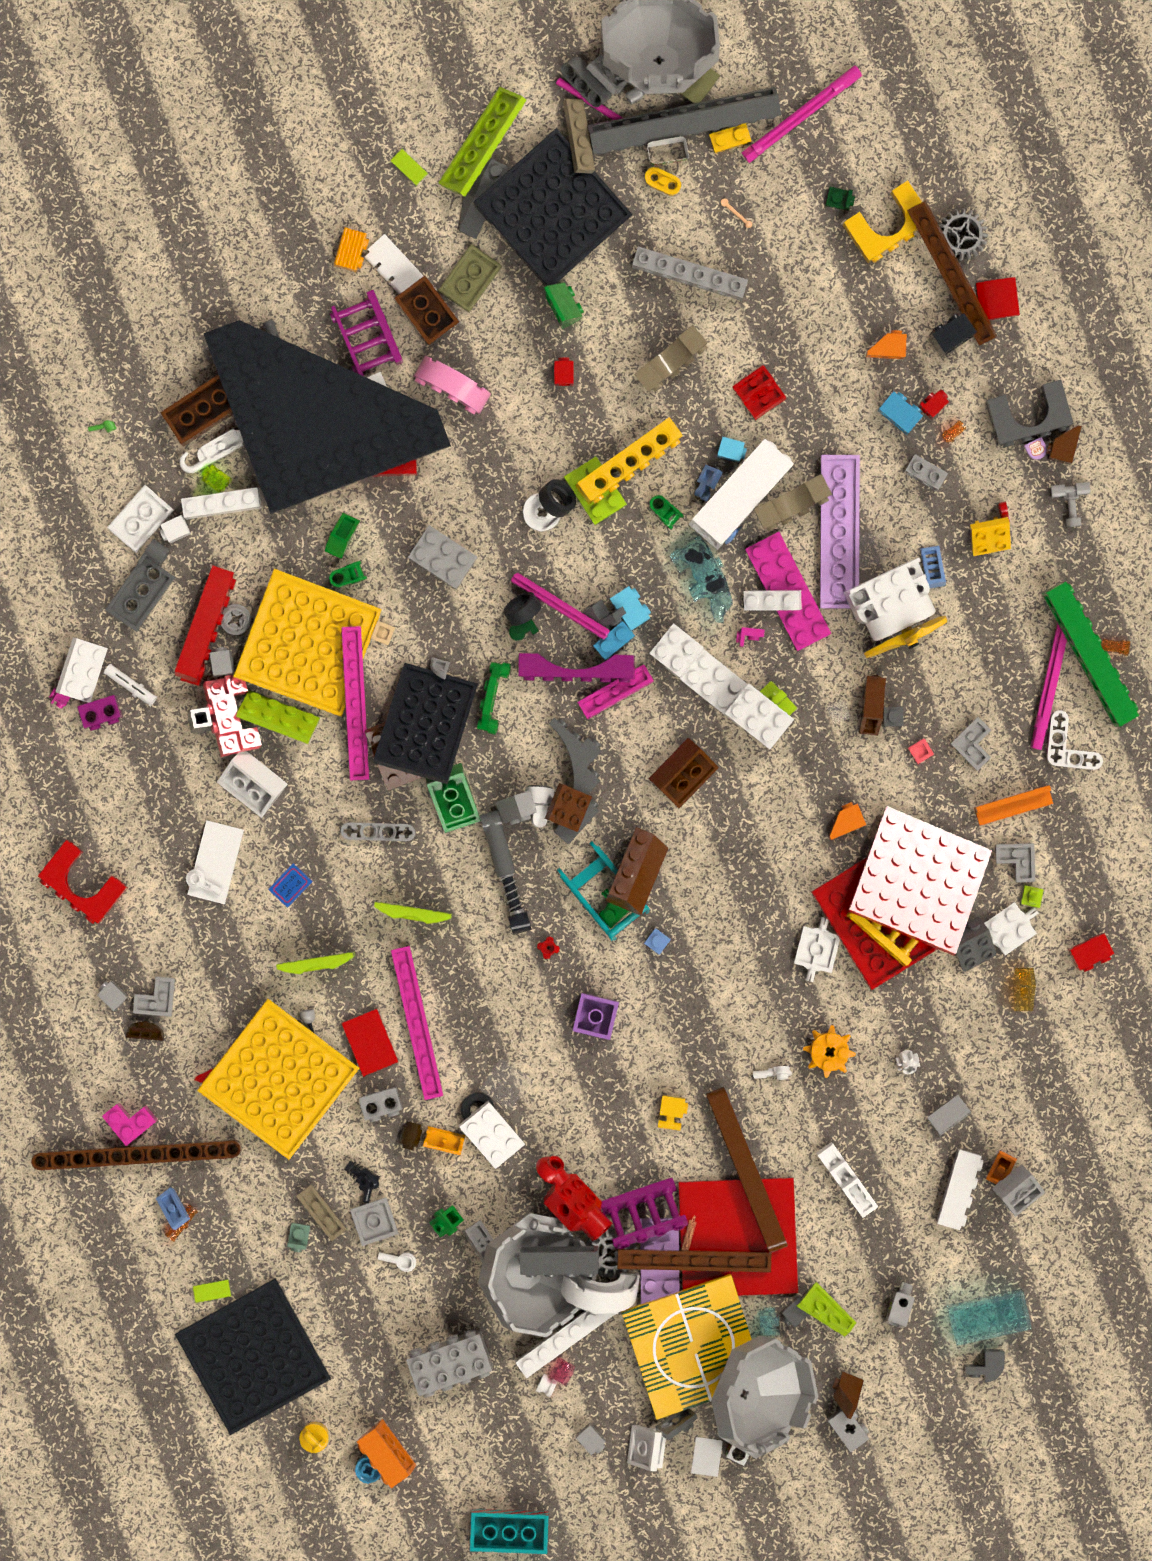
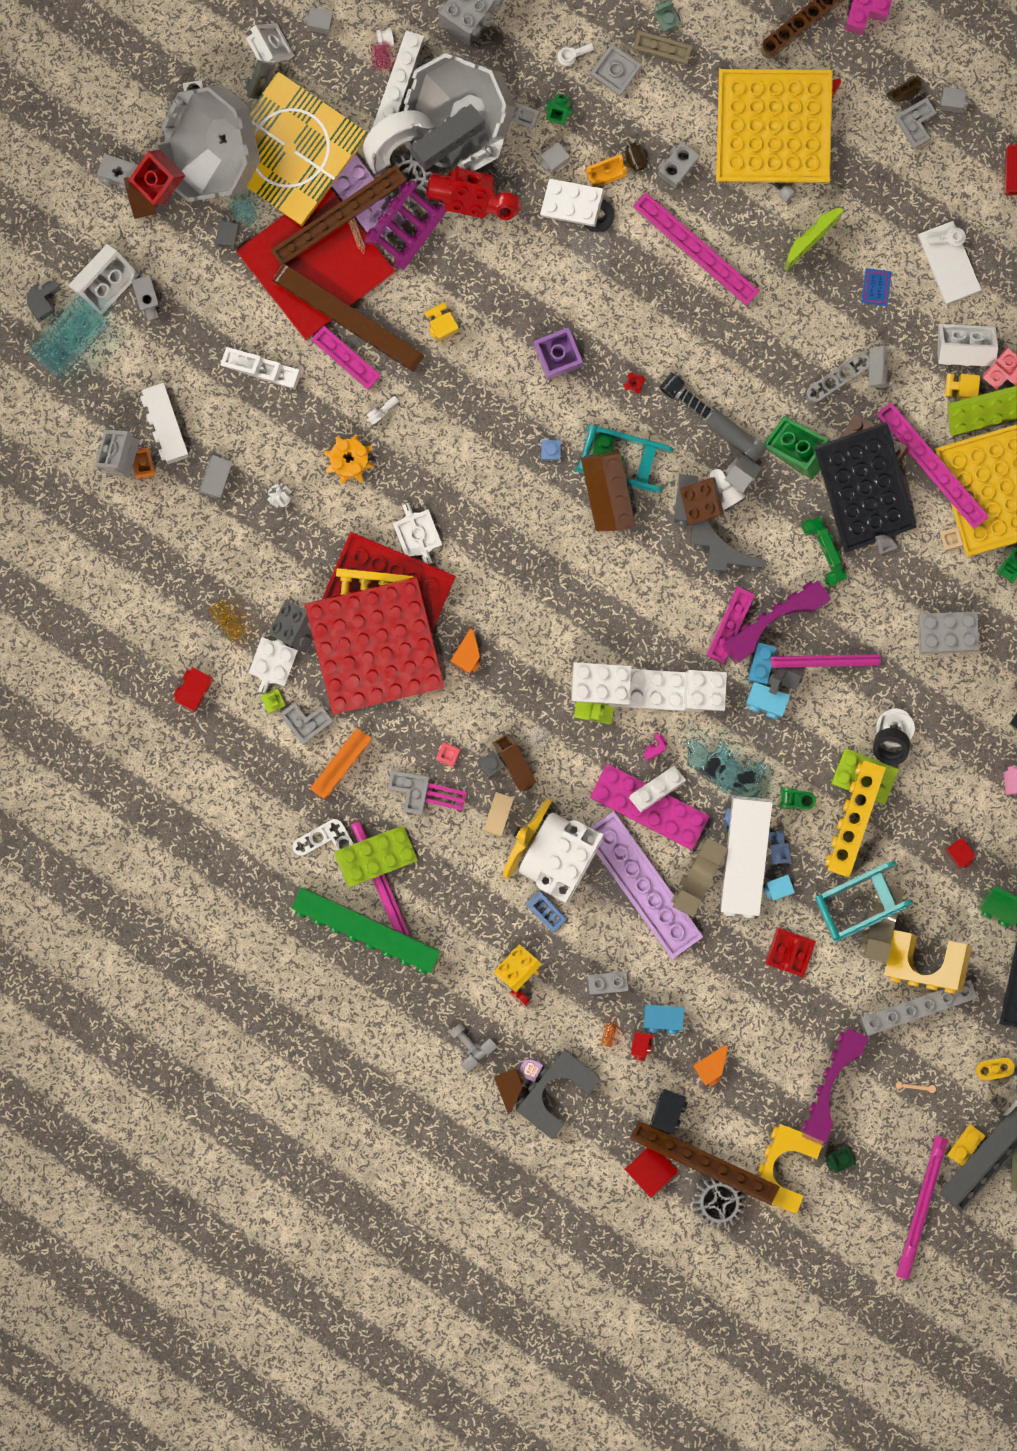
camera: 140 degrees right, 5 degrees down
(278, 748) = (966, 386): none -> yellow brick
(338, 816) = (878, 367): none -> light grey hinge
(364, 1177) = (648, 98): black piece -> none
(370, 1042) = (722, 208): red tile -> none
(412, 913) = (765, 330): lime slope -> none
(480, 1182) = (554, 158): none -> light grey brick
(519, 632) = (843, 620): dark green leg -> none
(522, 608) = (854, 636): black tyre -> none
(653, 383) = (883, 891): none -> teal piece
(679, 314) = (949, 976): none -> yellow arch
(683, 773) = (627, 598): reddish brown slope -> none
(706, 1456) = (216, 71): white sticker -> none
(769, 280) = (820, 1123): none -> magenta arch
(771, 1138) = (346, 358): none -> dark pink plate
(823, 1399) = (156, 177): none -> red brick
(826, 1310) = (204, 252): lime wing -> none
(915, 672) = (498, 814): none -> tan slope
(924, 1346) = (103, 279): none -> white slope
(958, 730) = (461, 800): none -> dark pink tile
(1040, 708) = (375, 856): none -> lime plate
(1121, 646) = (343, 956): clear orange pin -> none

